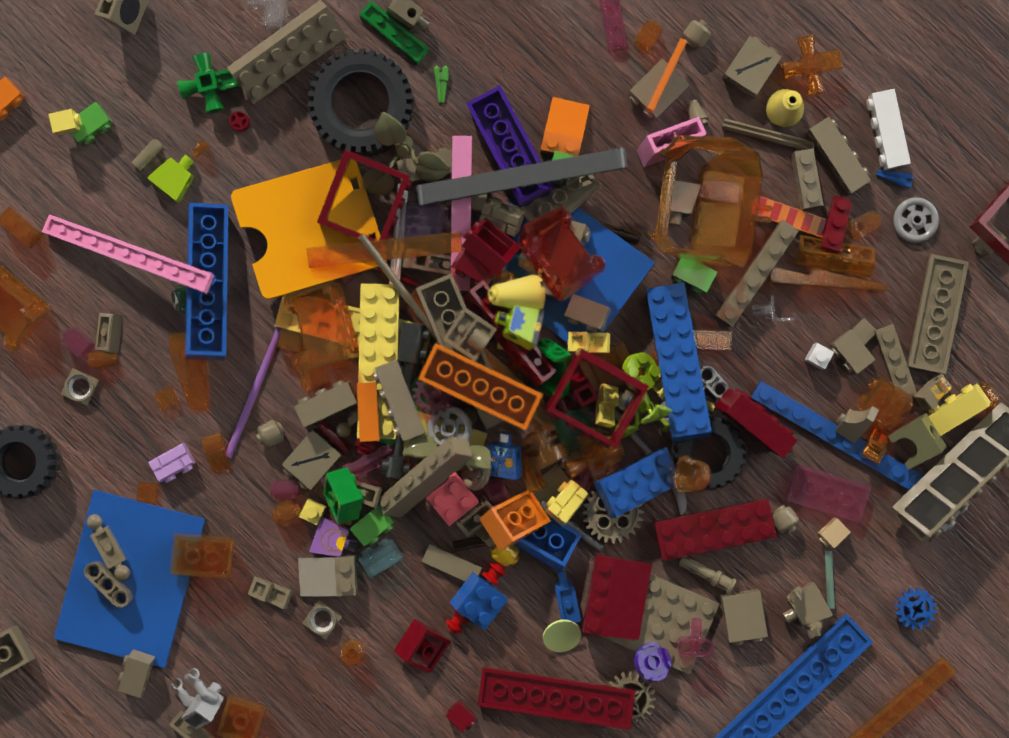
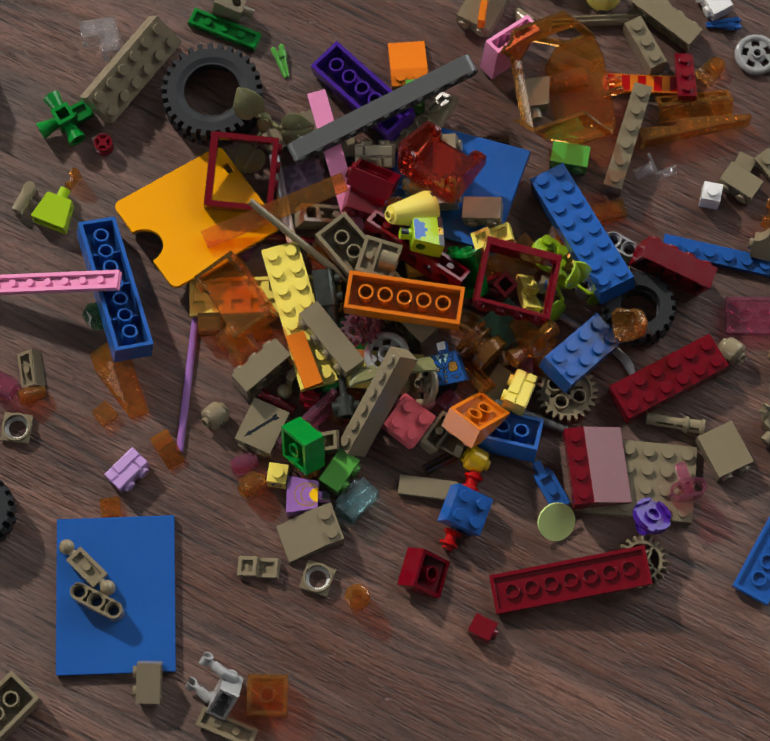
camera: 15 degrees left, 15 degrees down
(201, 555) = (181, 545): clear orange brick -> none

